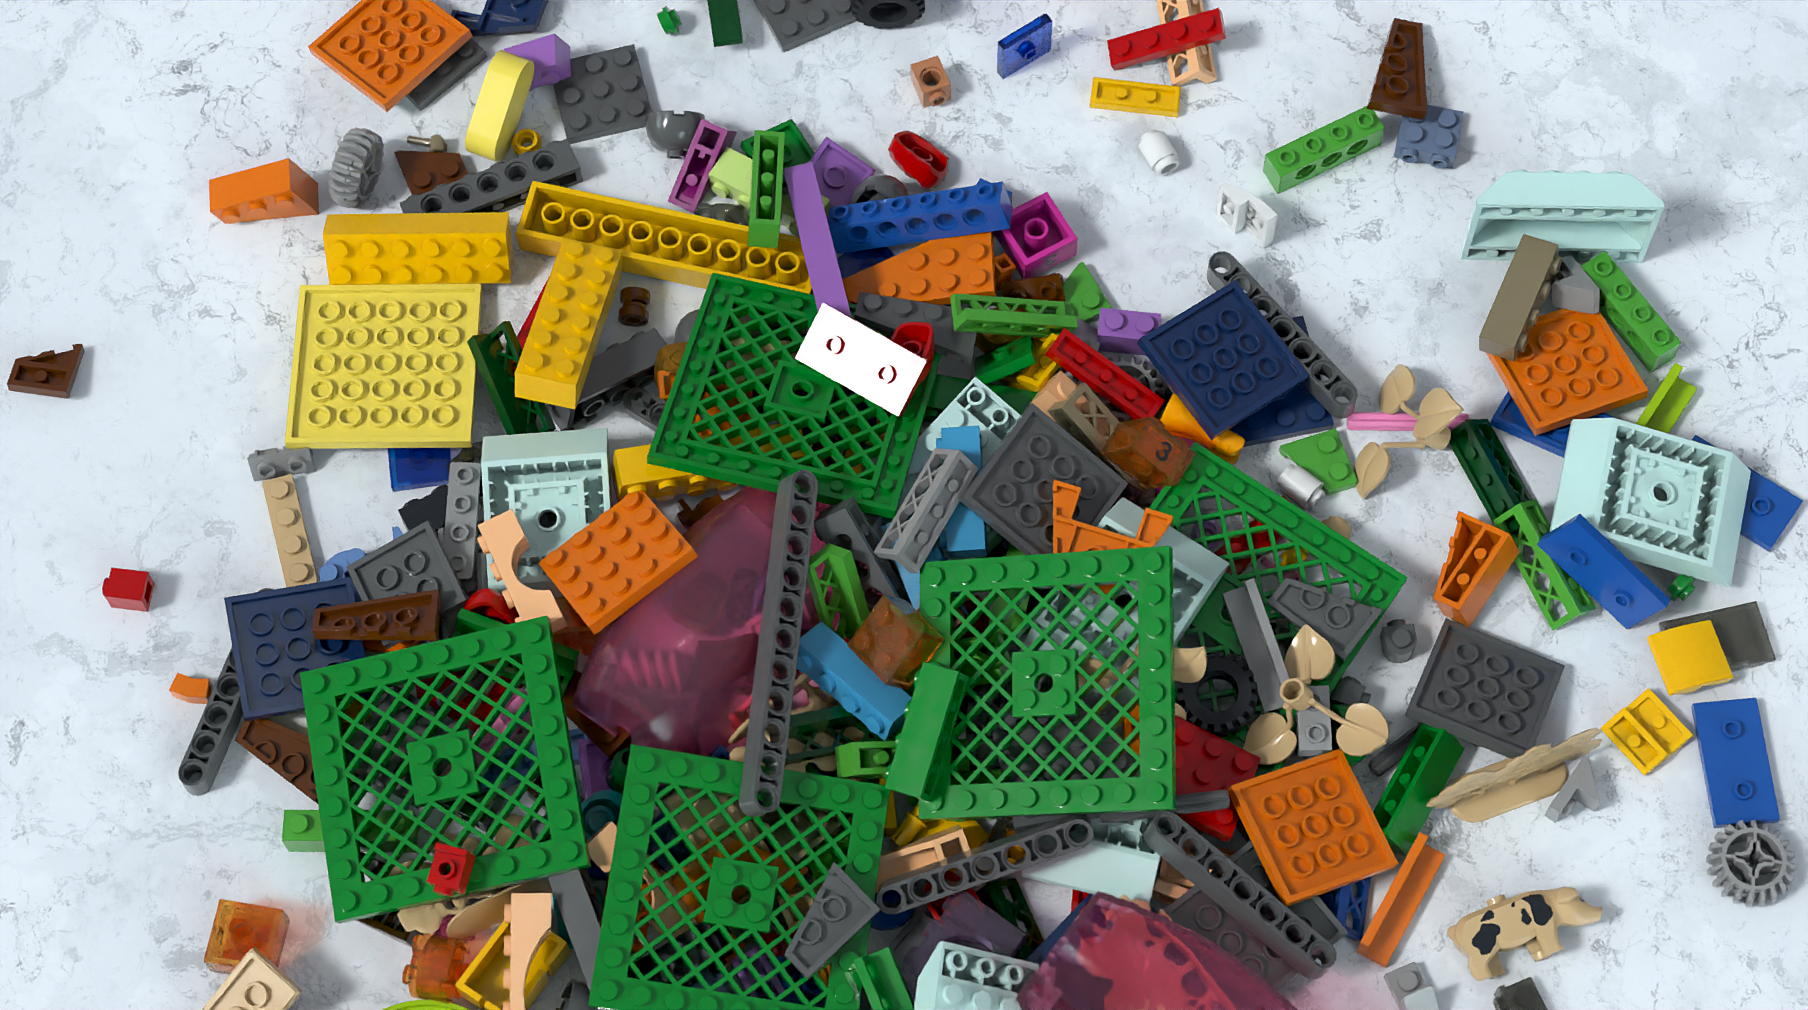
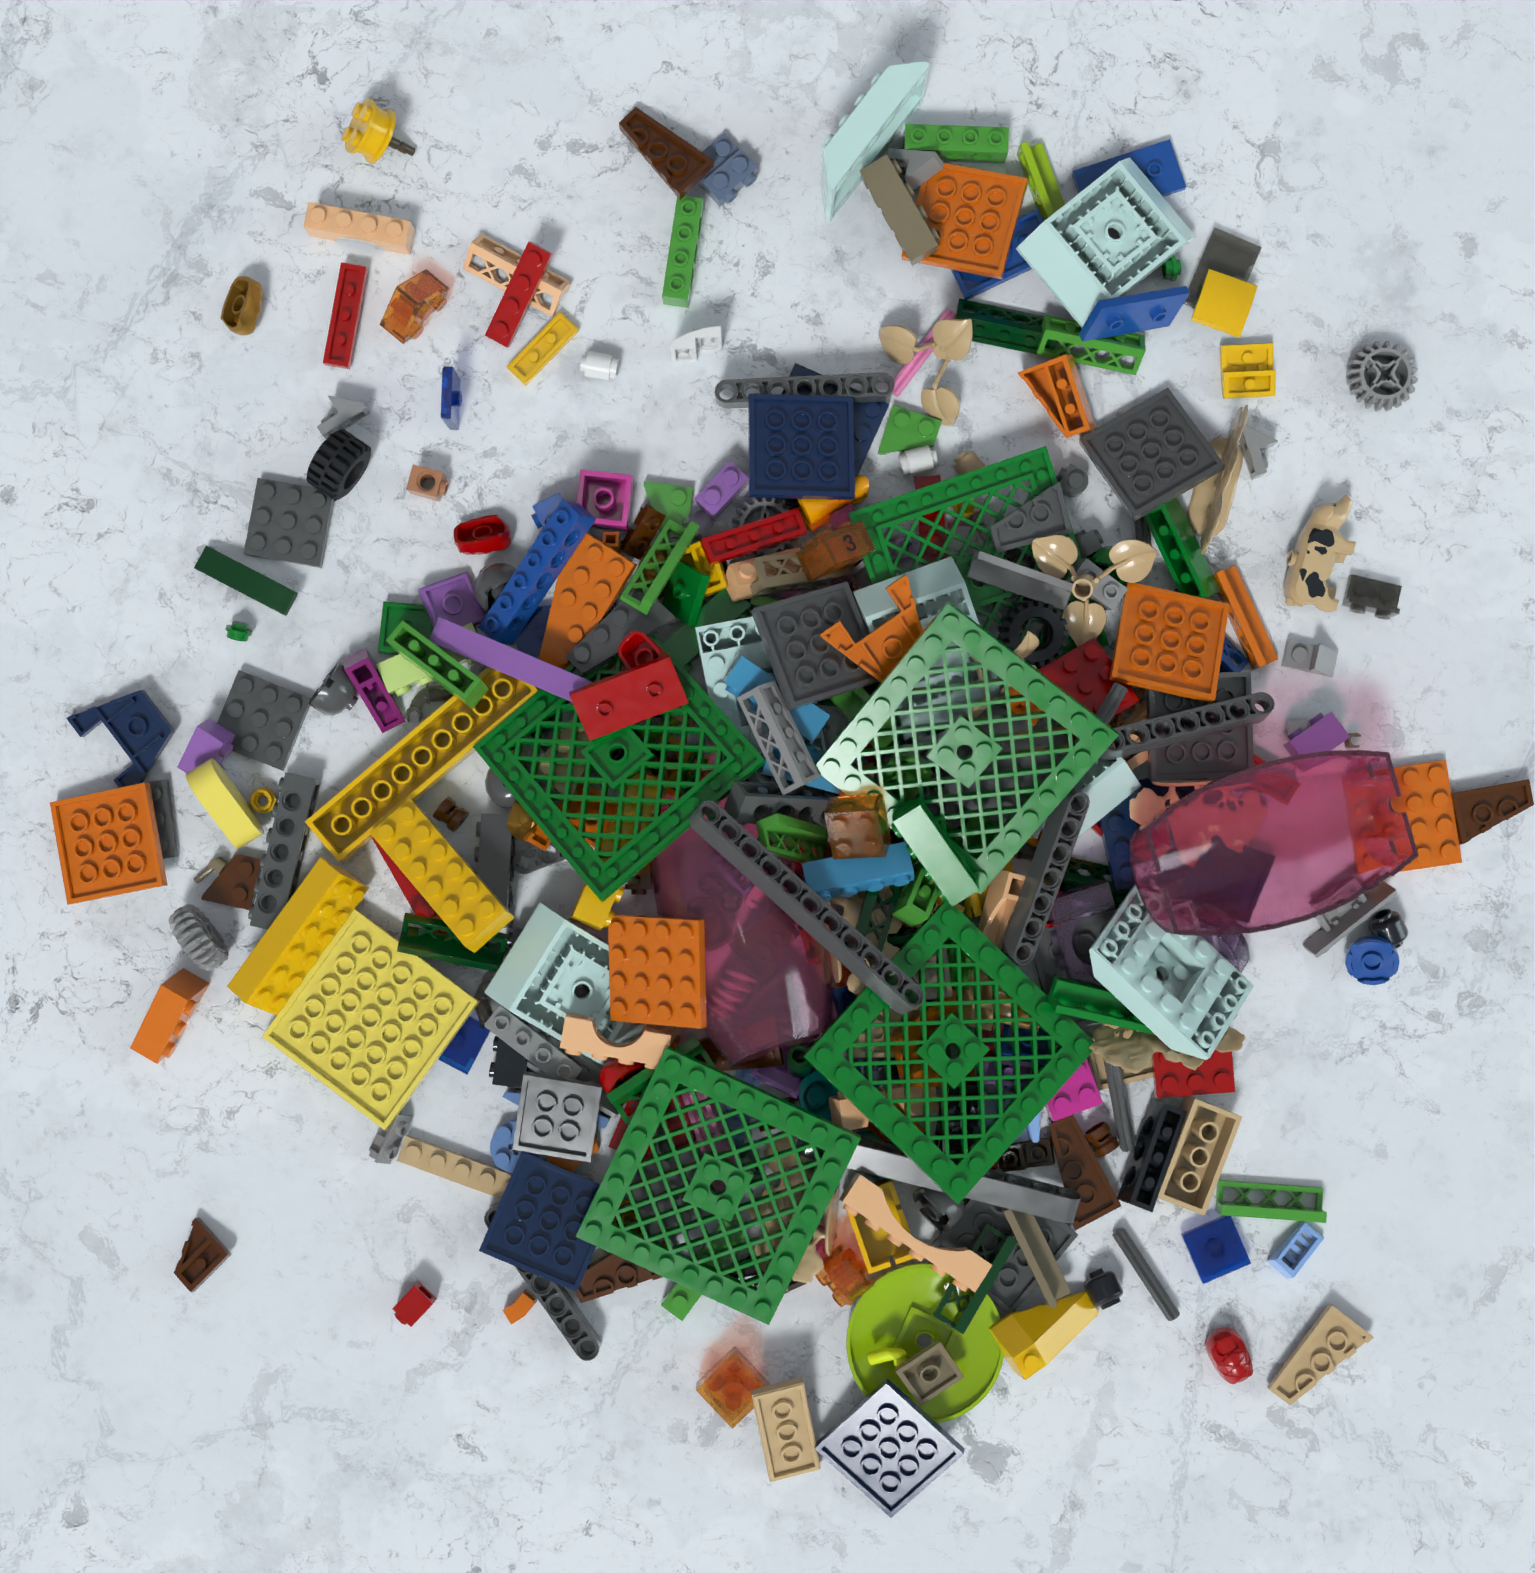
camera: 55 degrees left, 20 degrees up
(389, 618) = (579, 1151): reddish brown wing -> none
(461, 867) = (797, 1224): red brick -> none
(831, 922) = (1015, 1006): dark grey wing -> none
(1735, 762) = (1308, 330): blue plate -> none

